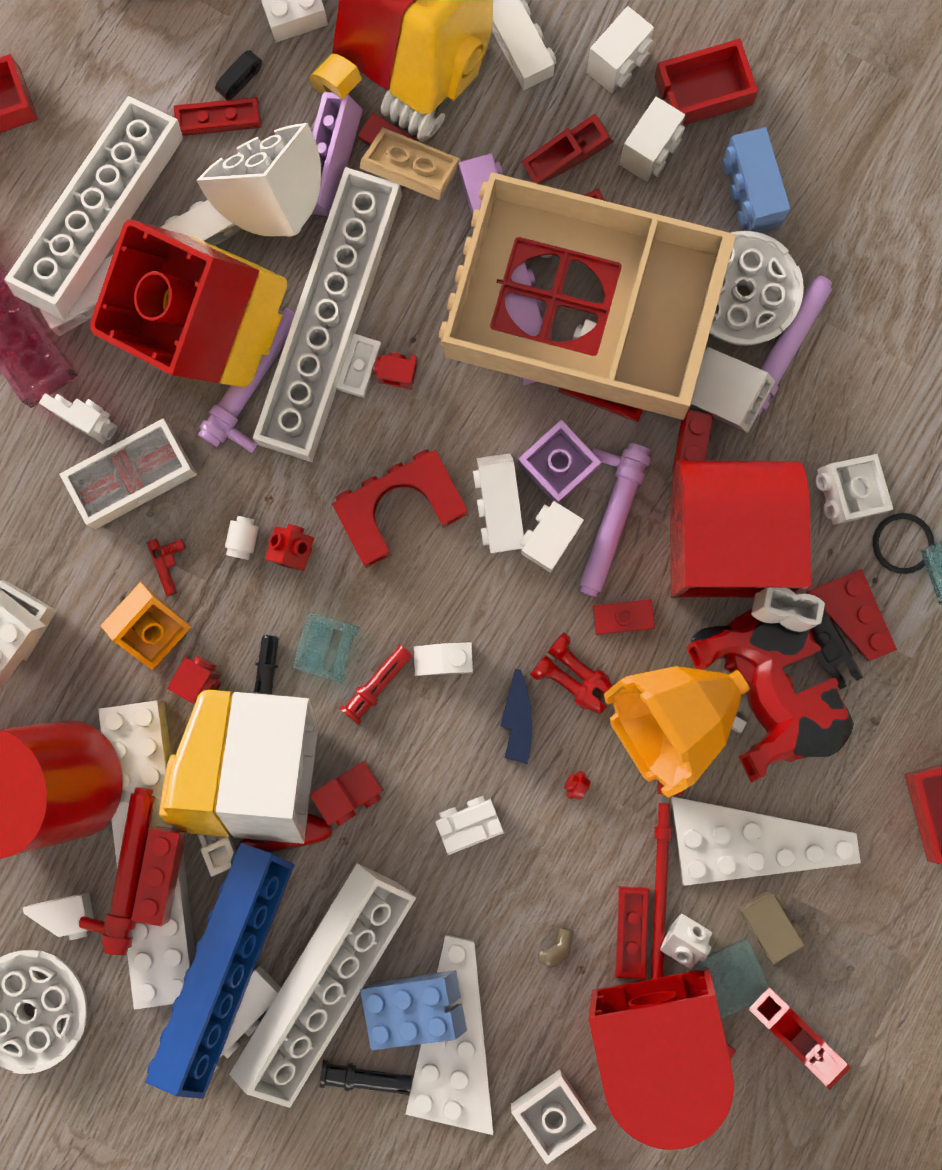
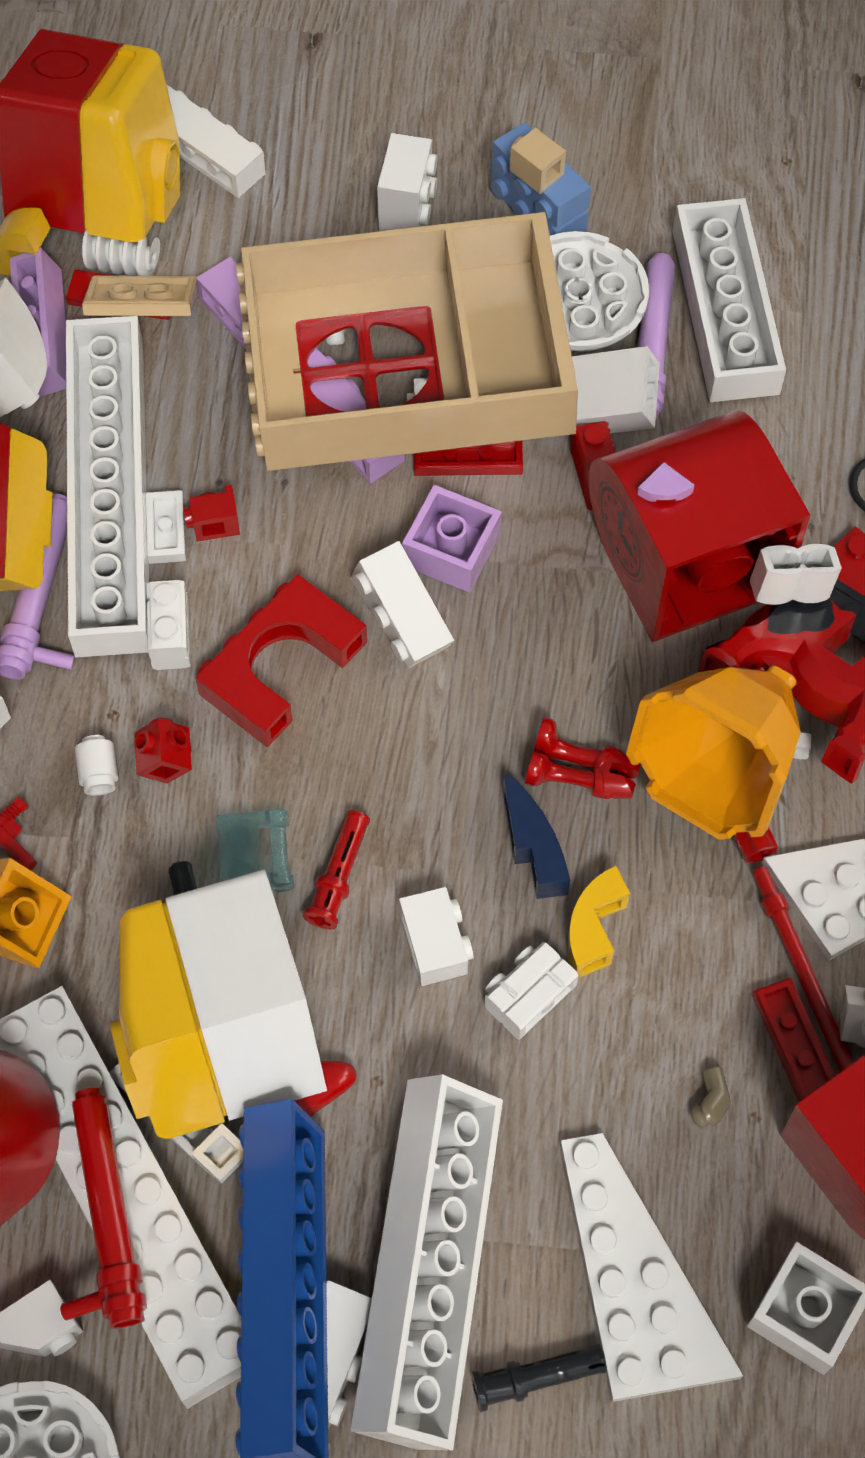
camera: 30 degrees left, 20 degrees down
(158, 876) = (150, 1192): red brick -> none
(193, 678) = (98, 944): red brick -> none
(330, 449) = (168, 624): none -> white brick
(347, 792) = (355, 1009): red brick -> none
(413, 1010) = (562, 1243): medium blue piece -> none
(421, 760) = (434, 936): none -> white brick
(443, 659) = (411, 806): white slope -> none
(522, 803) = (587, 940): none -> yellow brick
(551, 535) = (480, 611): white brick -> none
(567, 150) = (327, 217): red slope -> none
(577, 785) = (643, 889): red plate -> none
(620, 50) = (330, 116): white brick -> none
(623, 617) = (606, 682): red plate -> none
(629, 476) = (540, 527): lavender cylinder -> none
(707, 81) = (445, 107): red piece -> none
(714, 521) = (665, 485): none -> lavender tile
(756, 172) = (537, 160): none -> tan brick
(853, 489) = (807, 446): white plate -> none
(857, 340) = (728, 300): none -> white brick

